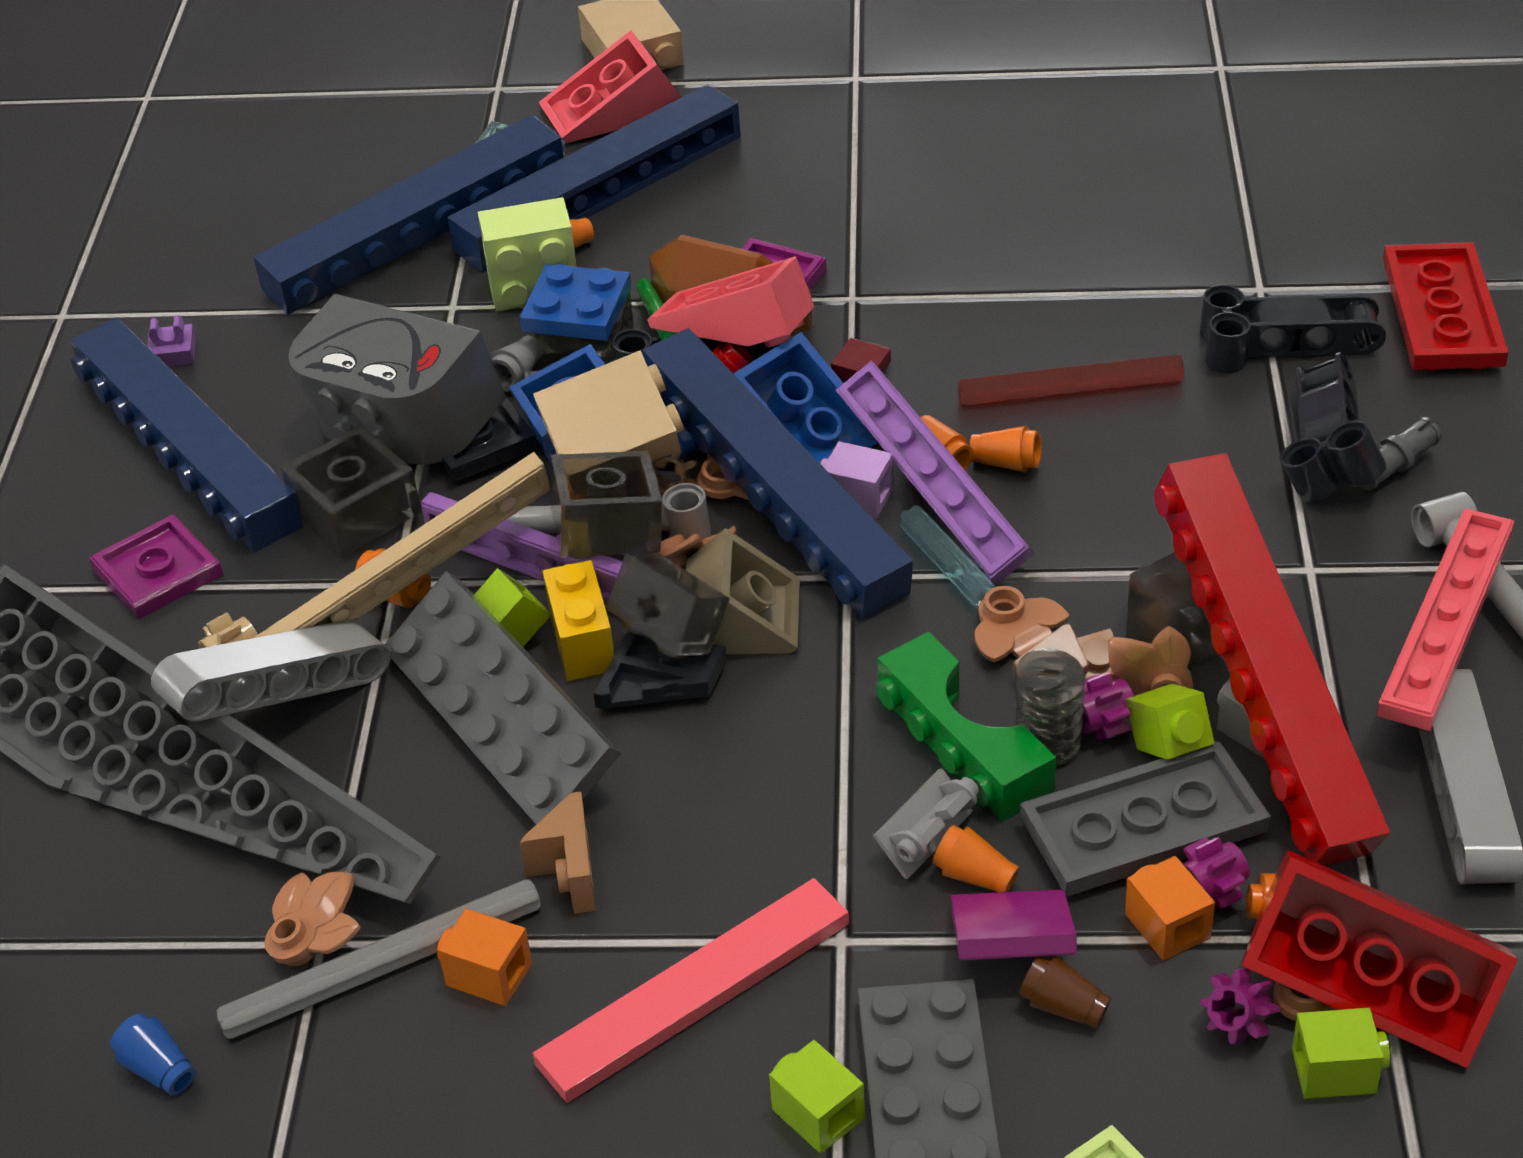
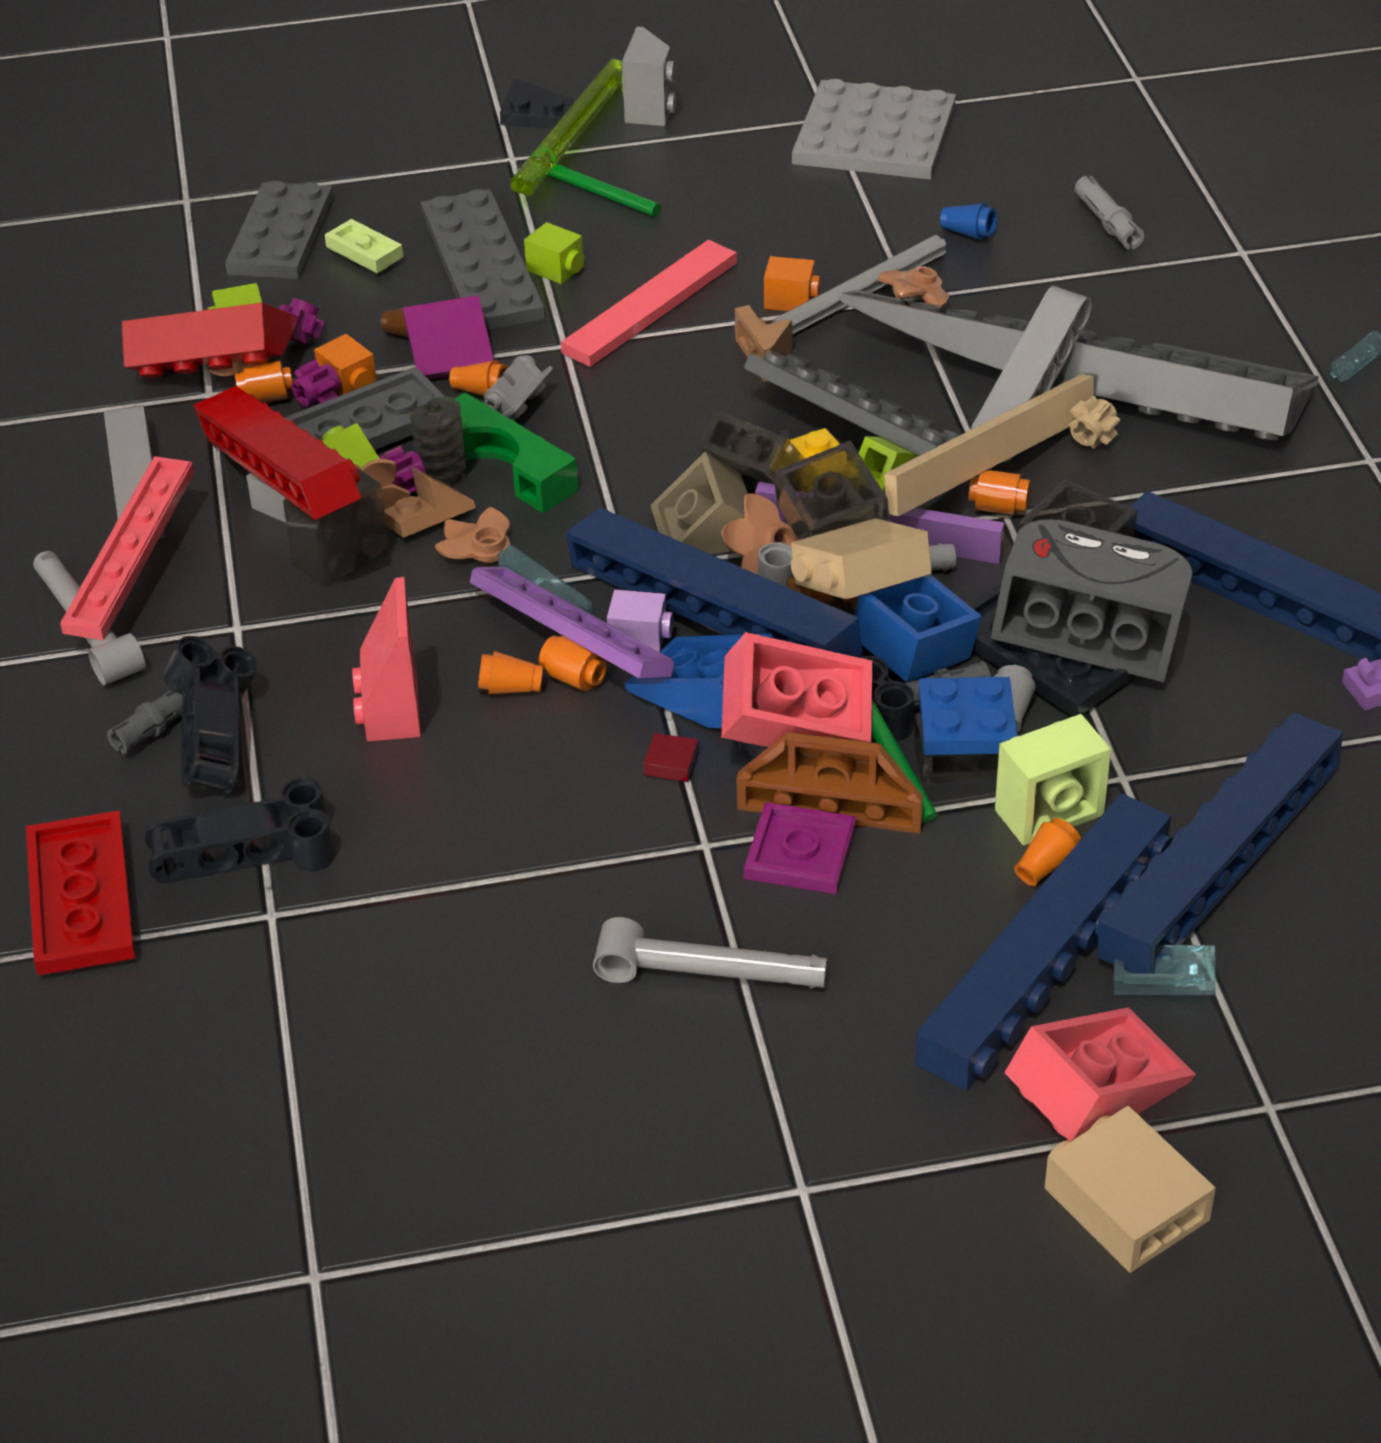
camera: 165 degrees right, 0 degrees up
(156, 566) = (1216, 489): magenta tile -> none
(946, 208) = (625, 949): none -> light grey piece
(1070, 380) = (458, 762): clear red axle -> none
(1136, 417) = (388, 673): none -> coral slope

